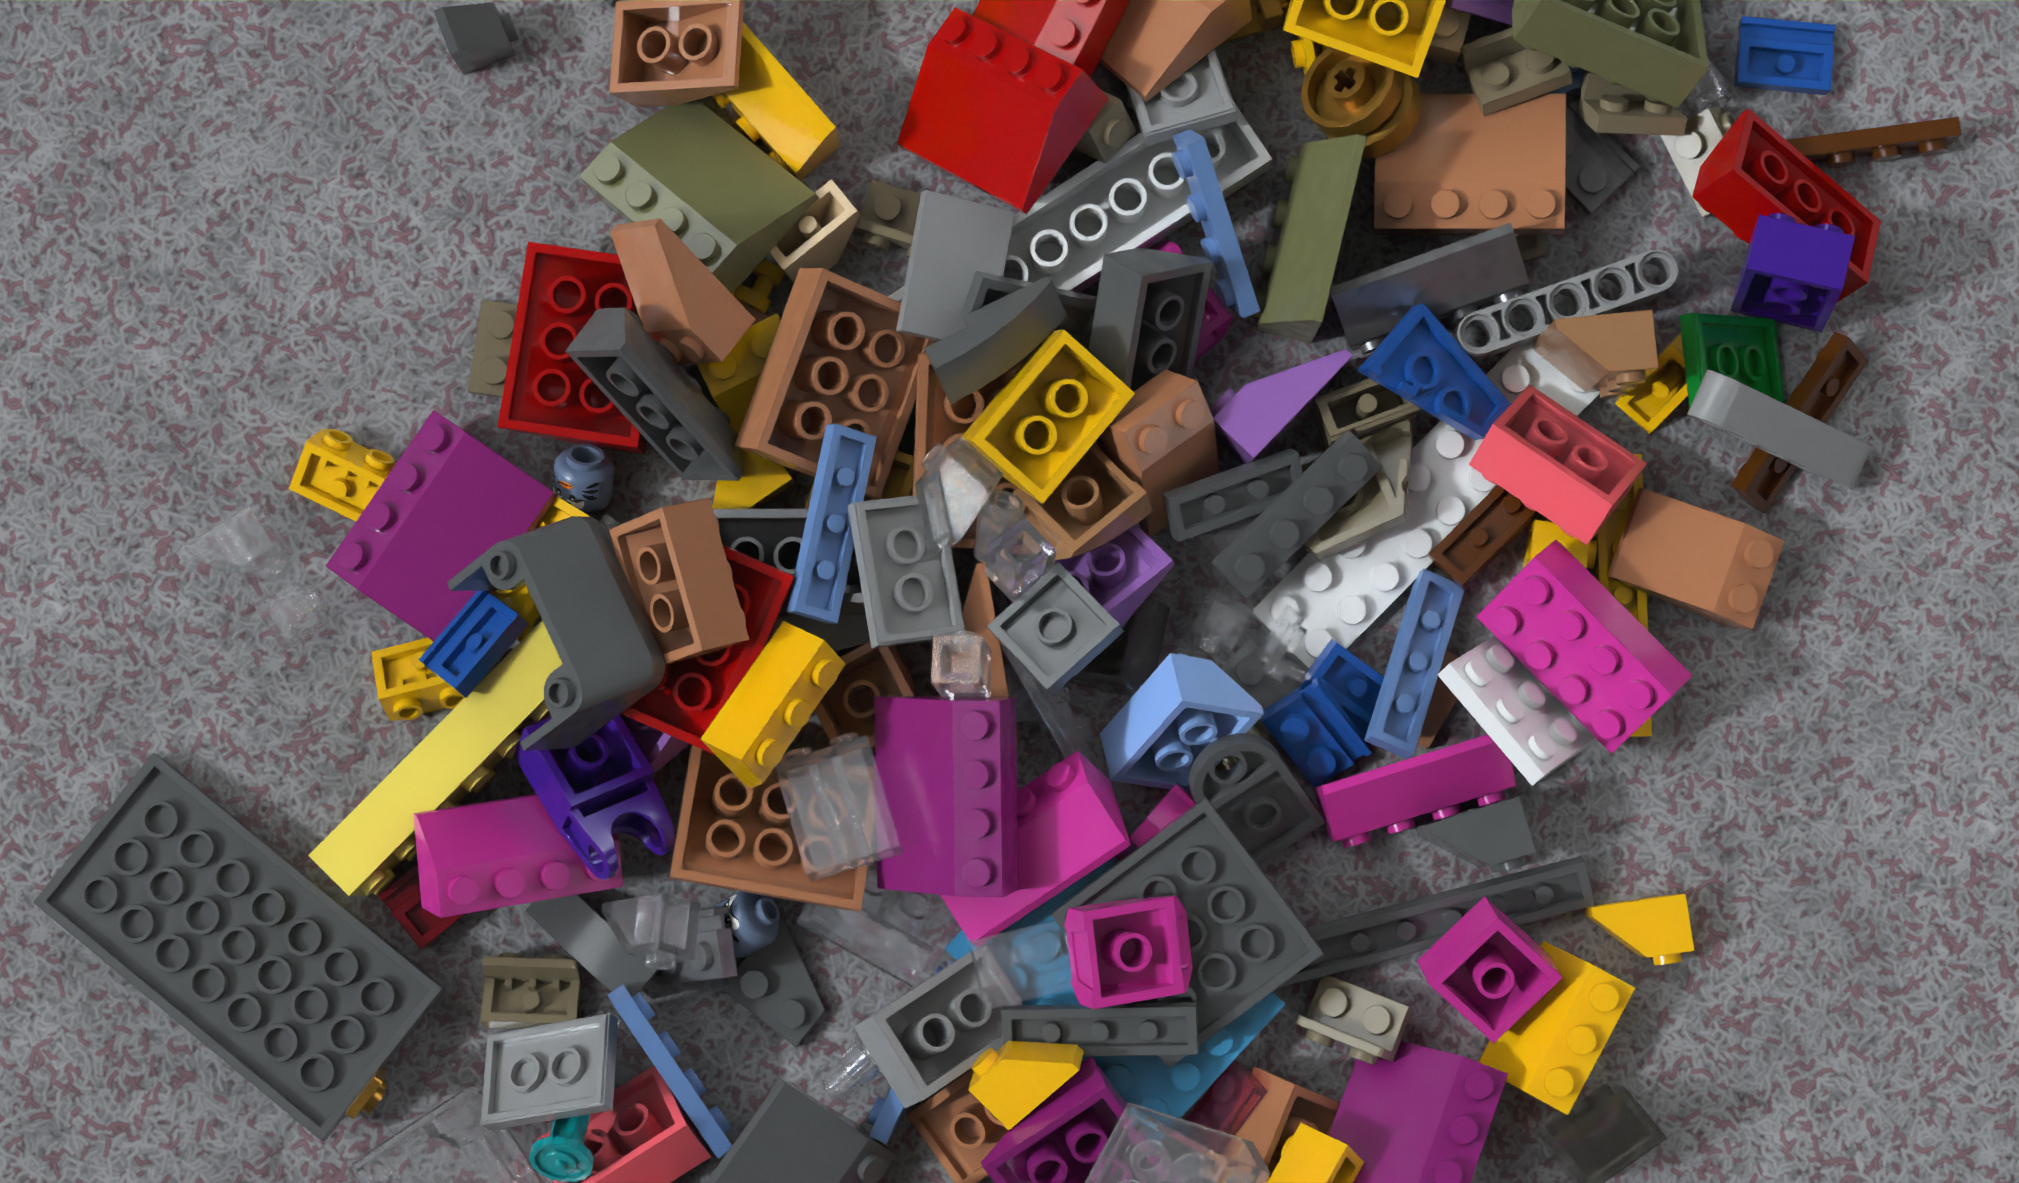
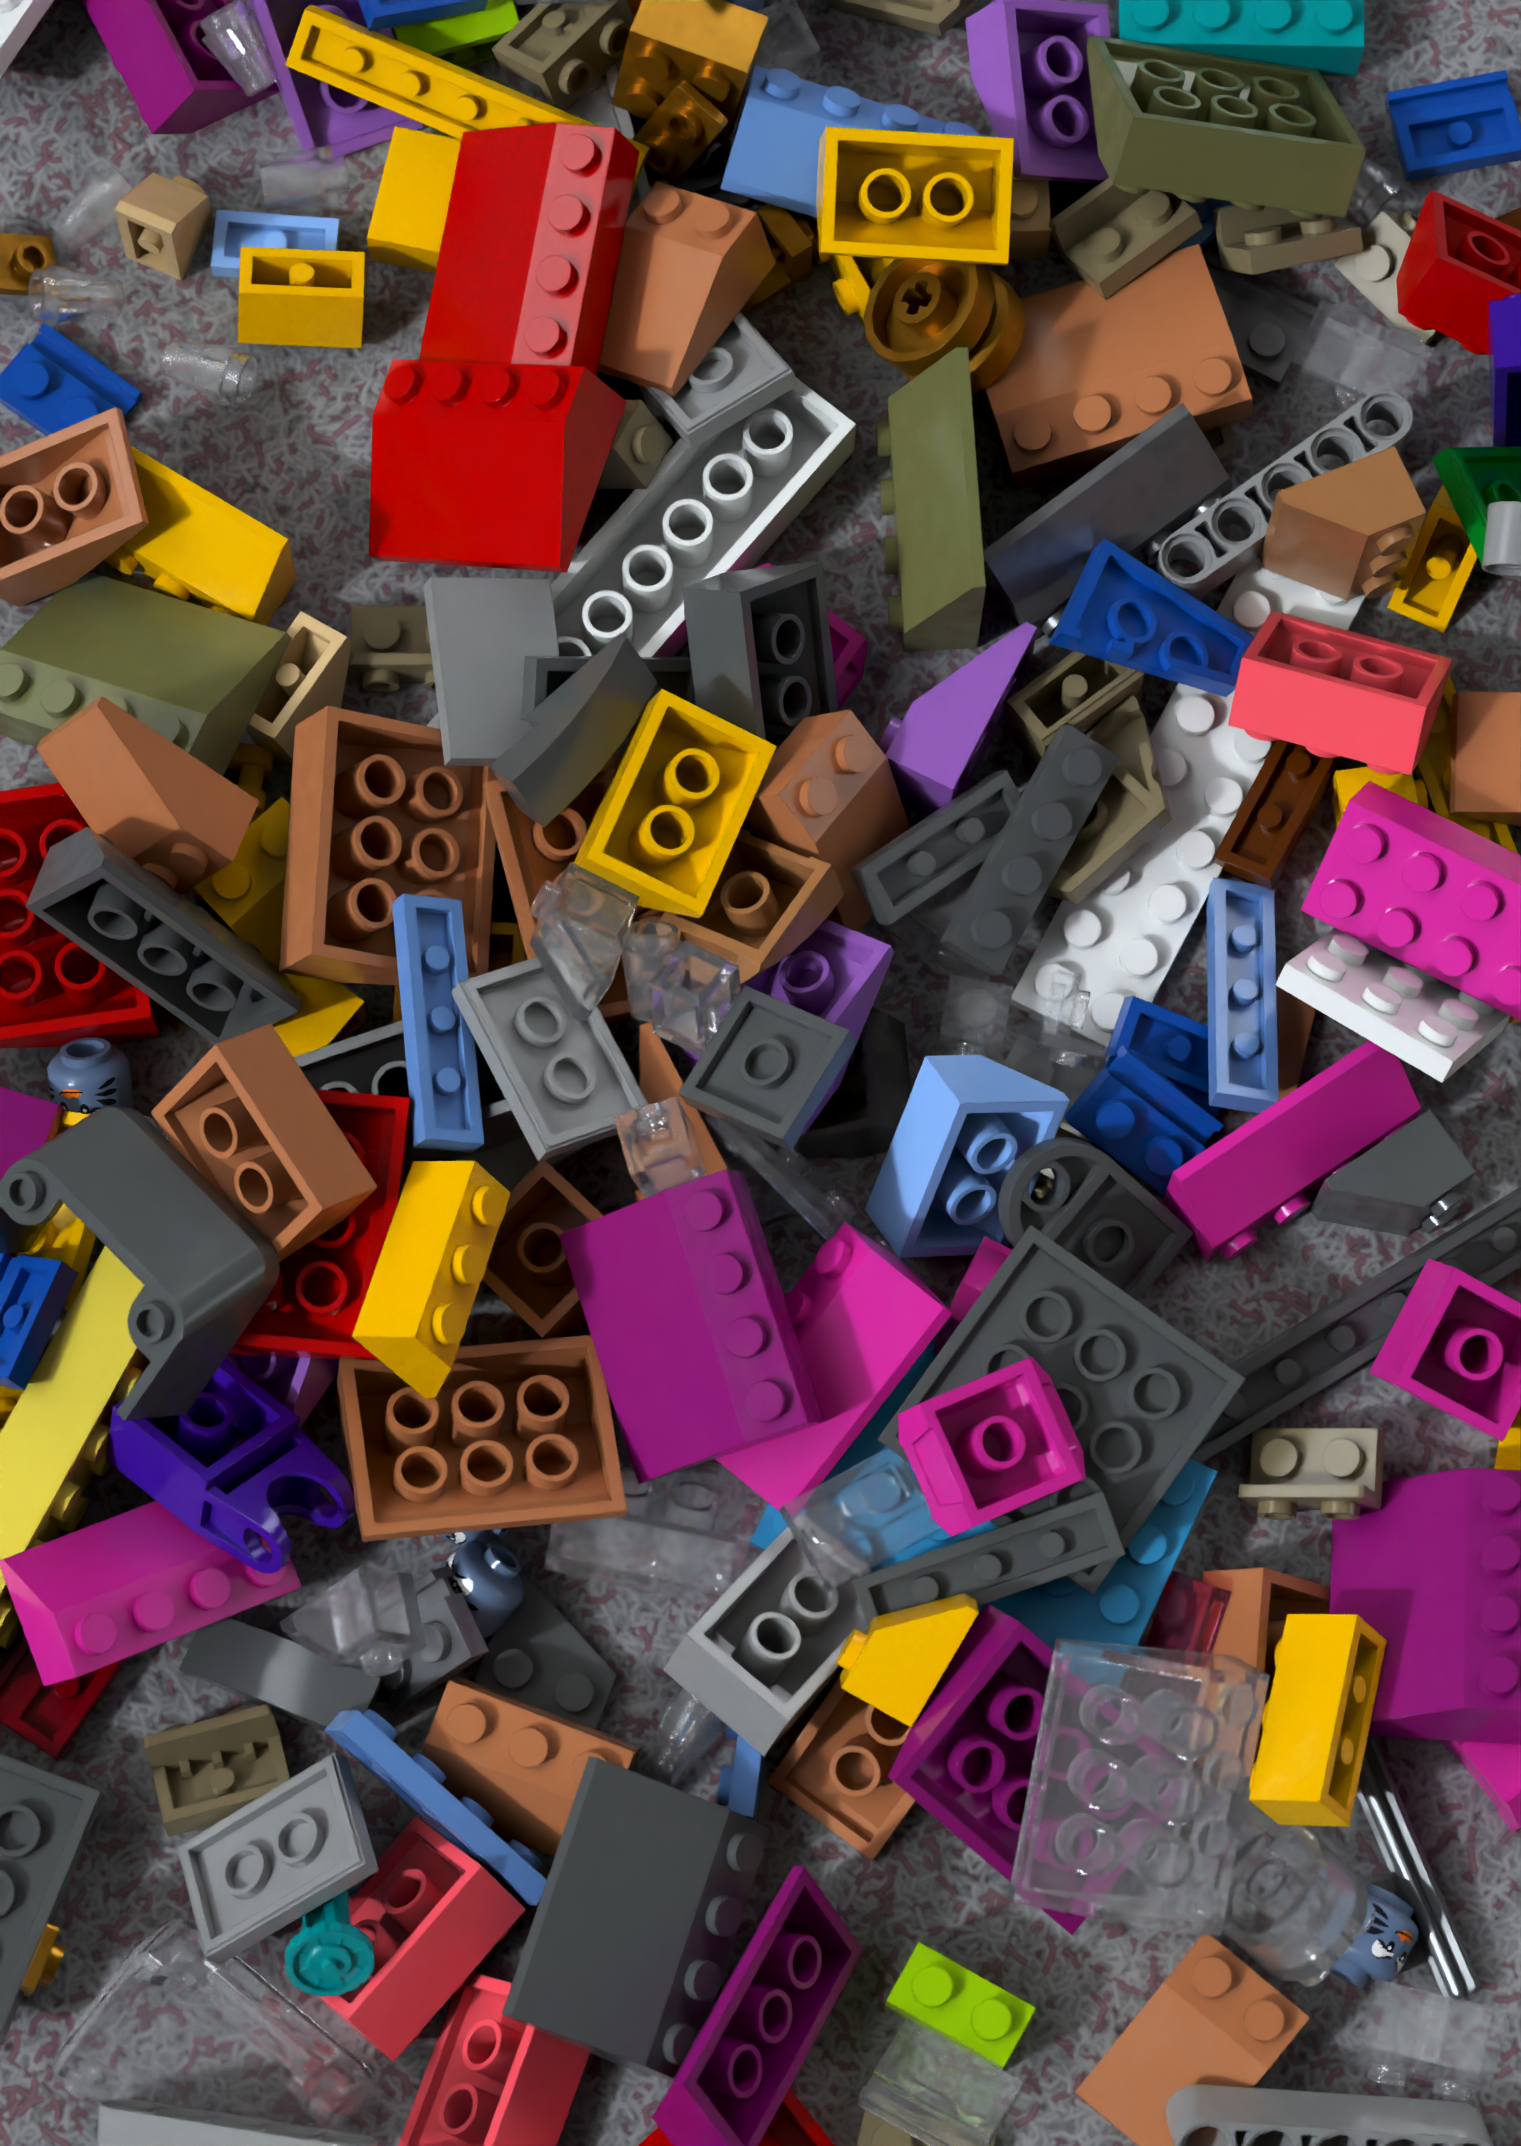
camera: 20 degrees left, 10 degrees down
(738, 1051) = (516, 1760): none -> nougat slope
(838, 806) = (557, 1383): clear brick -> none
(1209, 208) = (798, 502): medium blue plate -> none
(1654, 215) = (1352, 357): none -> clear brick

